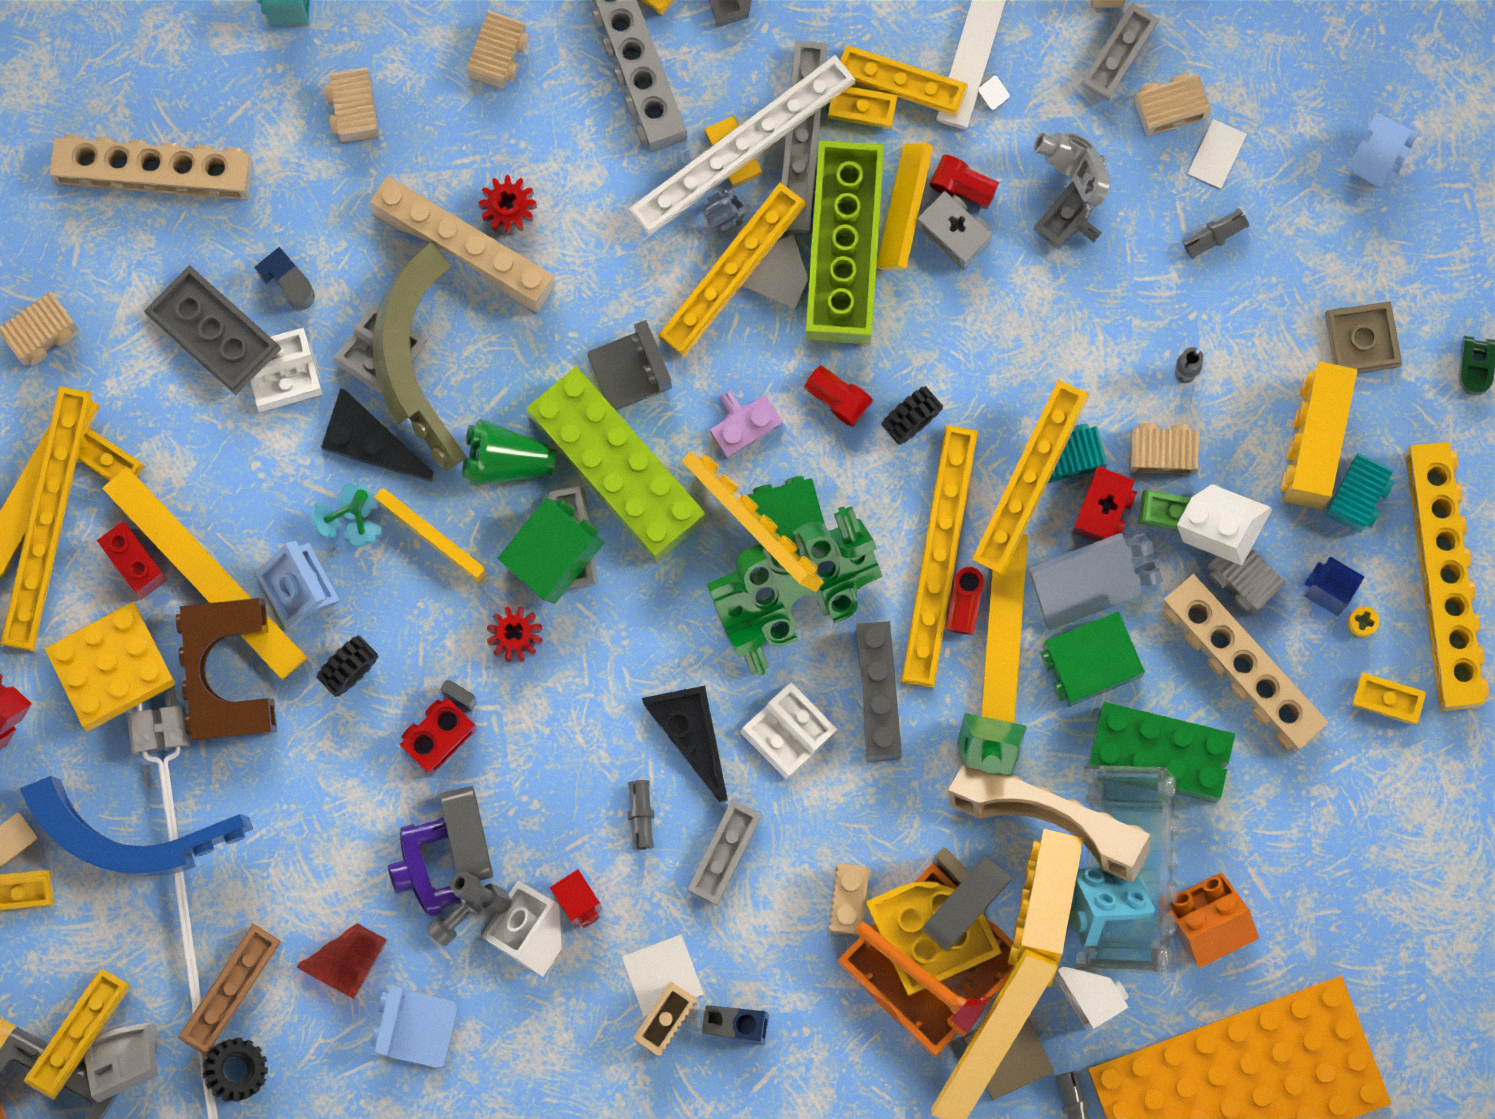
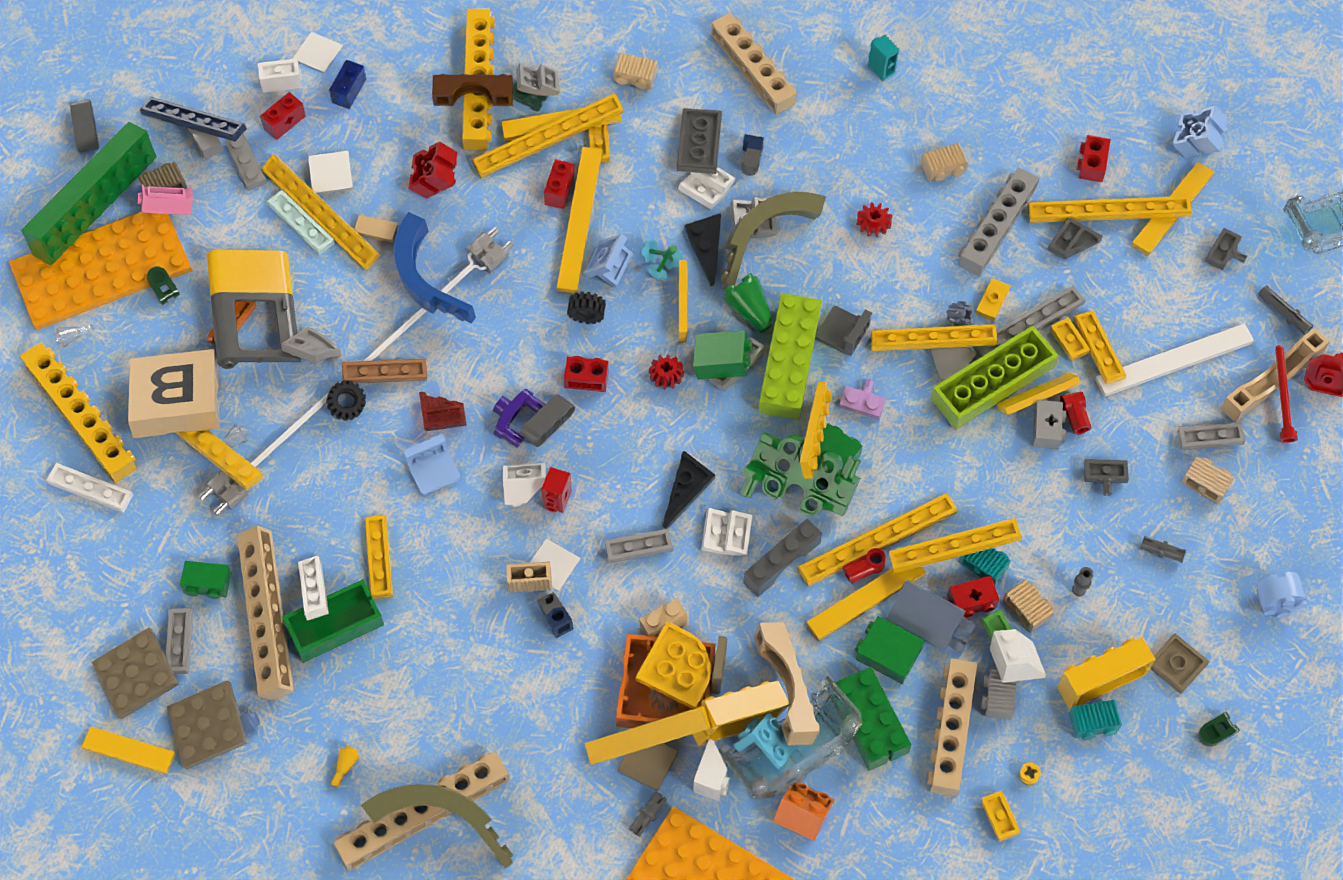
camera: 50 degrees right, 15 degrees down
(77, 1034) = (309, 320): yellow tile -> none
(110, 666) = (499, 210): yellow plate -> none
(201, 630) = (550, 234): reddish brown arch -> none
(353, 105) = (860, 122): tan brick -> none
(458, 695) = (615, 369): dark grey tile -> none
(473, 899) = (517, 444): dark grey bar -> none
(499, 264) = (841, 234): tan arch -> none
(641, 815) = (625, 493): dark grey pin -> none
(742, 145) = (999, 297): white tile -> none
(845, 400) = (916, 437): red piece -> none
(912, 415) = (936, 469): black tyre -> none
(965, 1011) = (650, 710): orange piece -> none
(966, 903) = (705, 666): dark grey beam -> none
(990, 744) = (801, 628): green torso -> none
(993, 92) = (1134, 394): white sticker -> none
(1079, 160) = (1136, 450): light grey piece -> none
(1217, 153) = (1205, 522): white sticker -> none
(1332, 585) = (1033, 738): clear blue brick -> none
(1451, 692) = (1140, 739): yellow brick -> none

